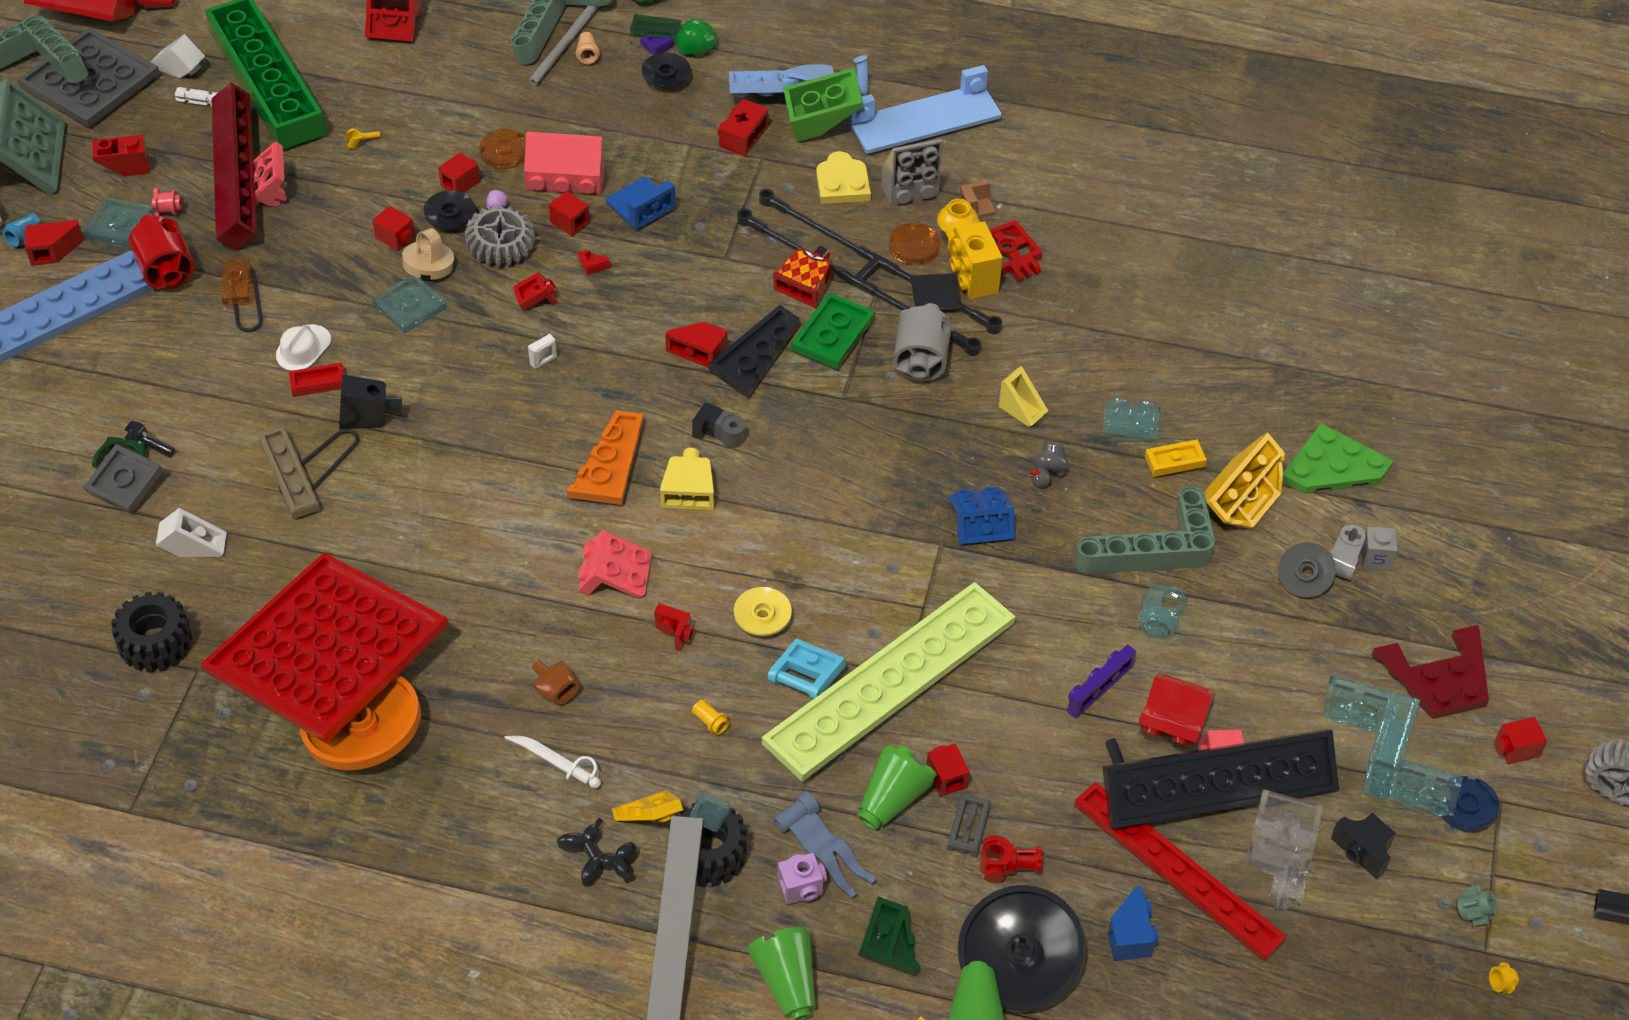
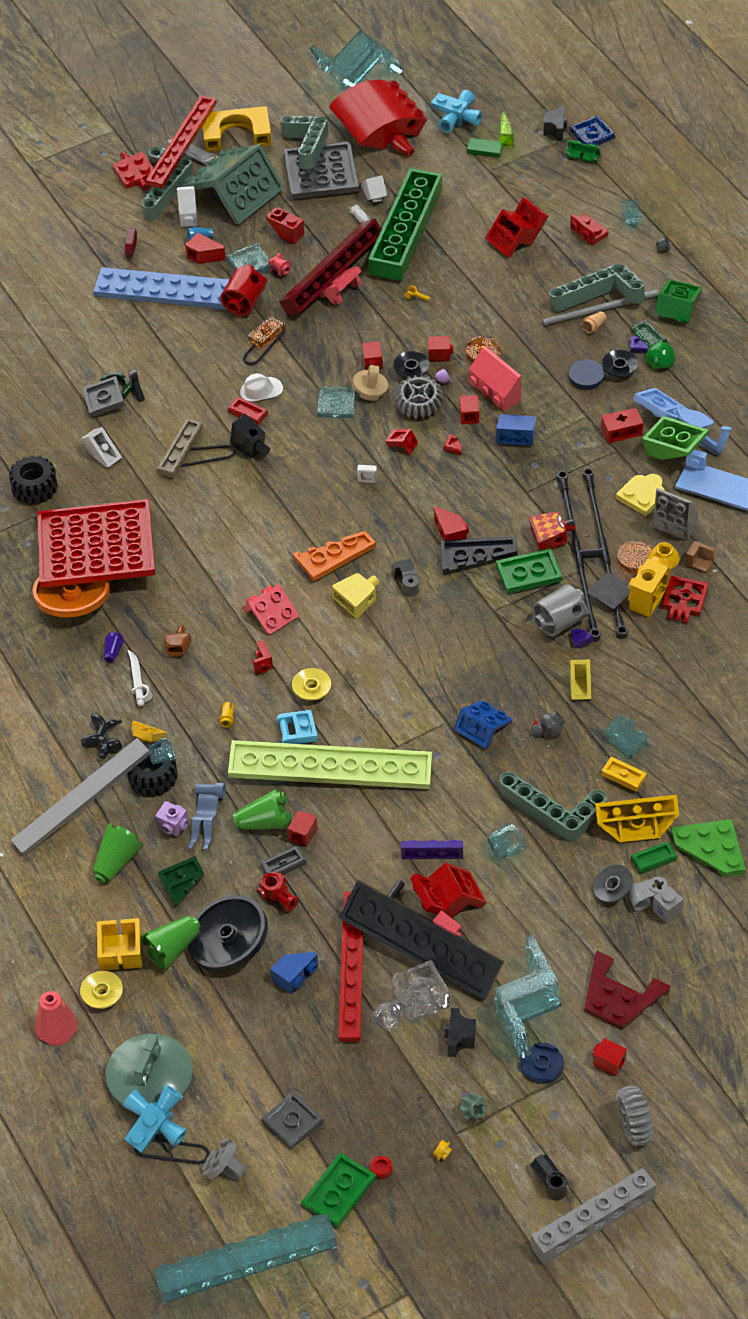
camera: 50 degrees right, 0 degrees up
(485, 746) = (113, 644): none -> dark purple cone
(641, 103) = (586, 374): none -> tile
(966, 357) = (581, 637): none -> dark purple tile
(1300, 516) = (653, 857): none -> green tile

